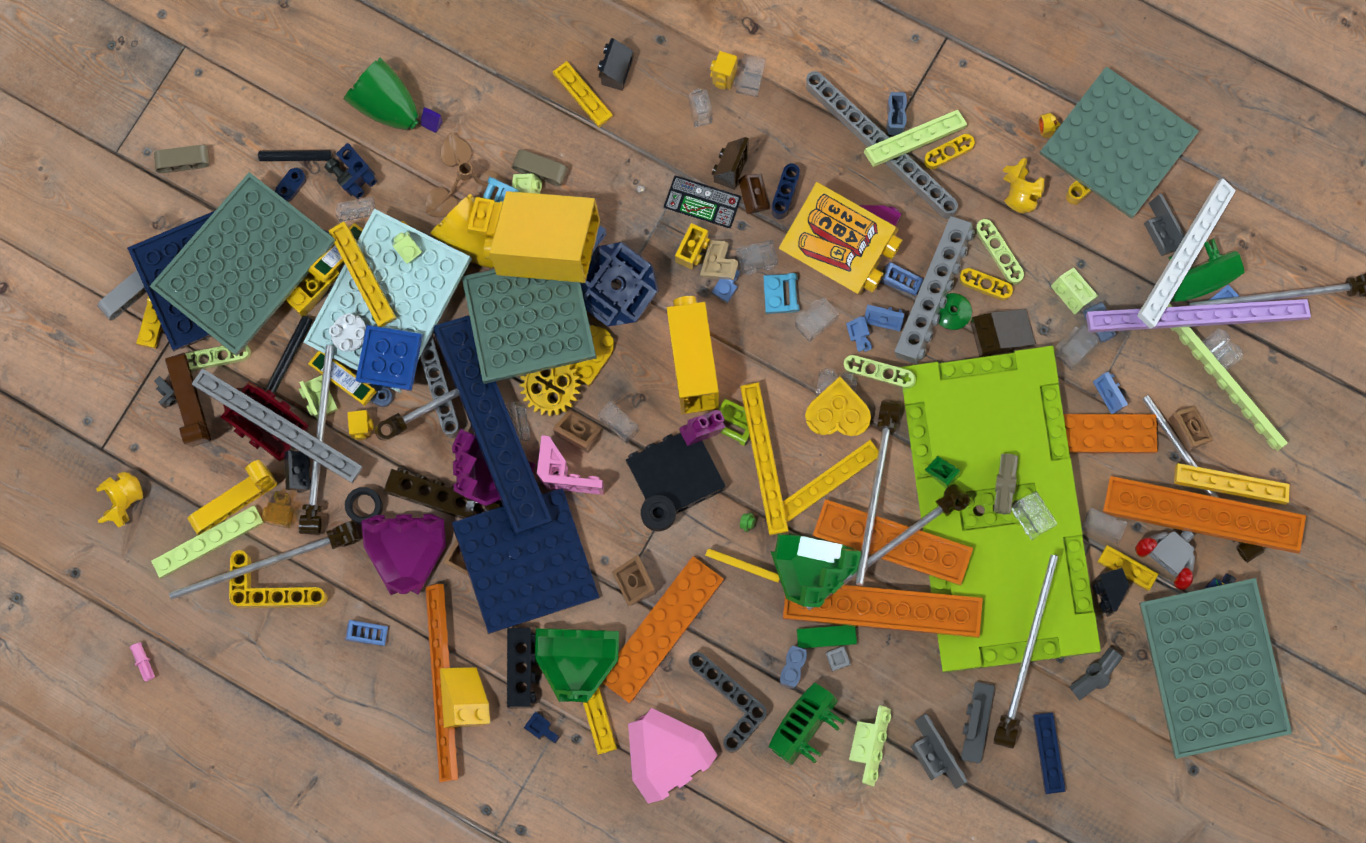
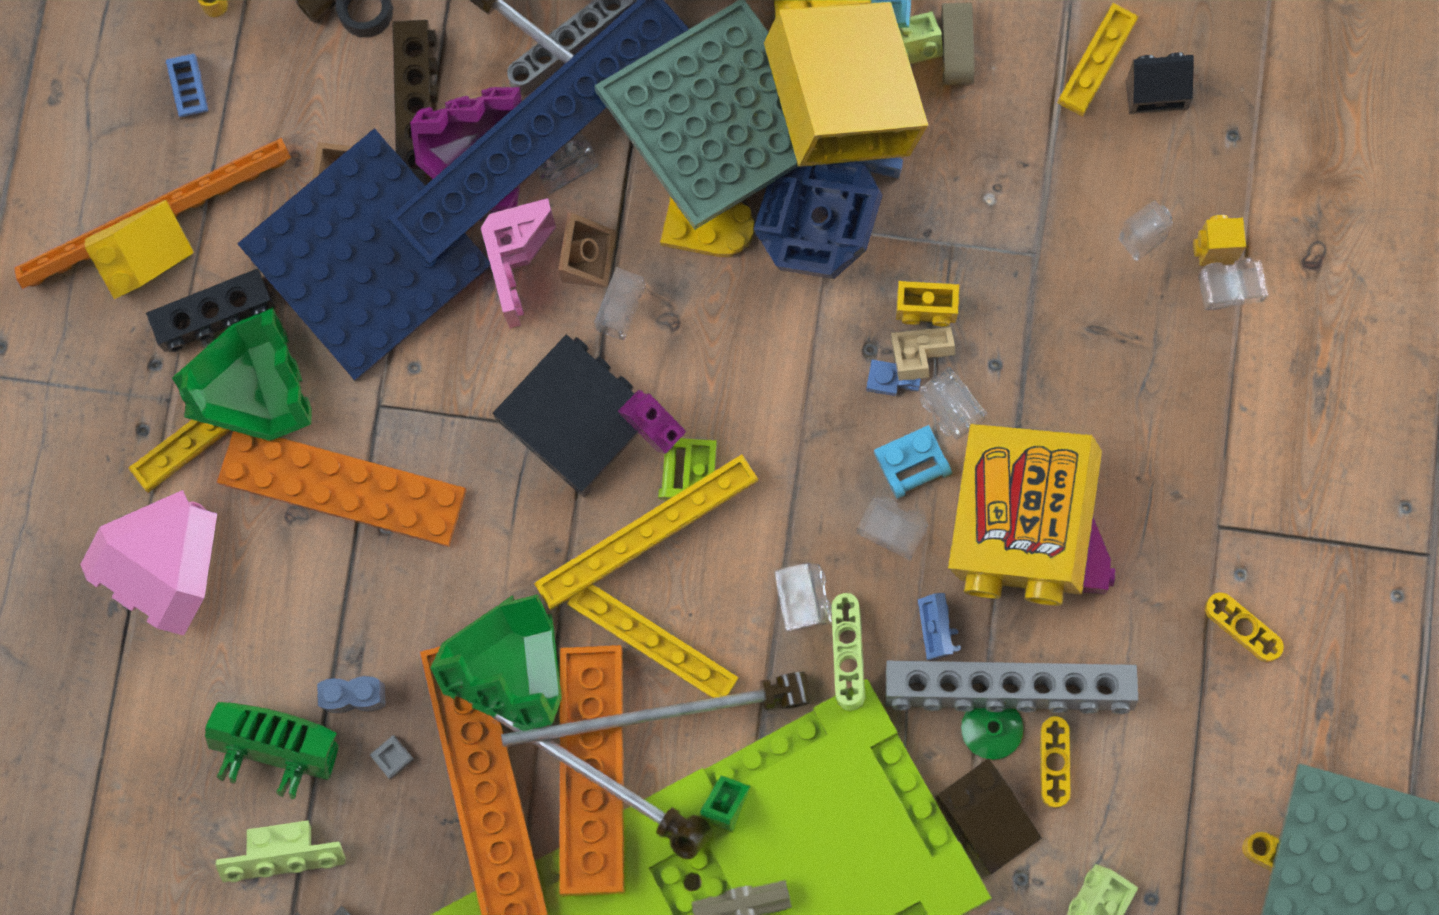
camera: 70 degrees right, 0 degrees up
(404, 549) = (320, 84): magenta panel -> none
(540, 726) = (137, 371): dark blue plate -> none
(542, 399) = (612, 186): yellow gear -> none
(634, 581) = (397, 420): medium nougat slope -> none
(662, 523) = (501, 426): black tyre -> none
(692, 355) = (751, 362): yellow brick -> none
(702, 202) = (1007, 294): sticker -> none
(732, 163) = (1079, 310): dark brown slope -> none
(732, 698) = (275, 624): dark grey beam -> none
(742, 565) = (476, 561): yellow tile -> none
(747, 522) = (544, 546): bright green plate -> none
(753, 193) = (1051, 363): reddish brown slope -> none
(785, 199) = (1084, 397): dark blue beam -> none
(826, 636) = (417, 726): green tile -> none
(838, 410) = (763, 613): yellow plate -> none
(858, 331) = (897, 597): medium blue plate -> none
(877, 136) = (1218, 508): light grey beam -> none
(896, 113) = (1273, 521): sand blue brick -> none
(898, 284) = (1020, 619): medium blue slope -> none
(915, 138) = (1238, 564): yellowish green plate -> none
(998, 252) = (1113, 762): yellowish green beam -> none
(1022, 194) = (1223, 764): yellow piece -> none
(1048, 125) = (1353, 763): yellow rock -> none

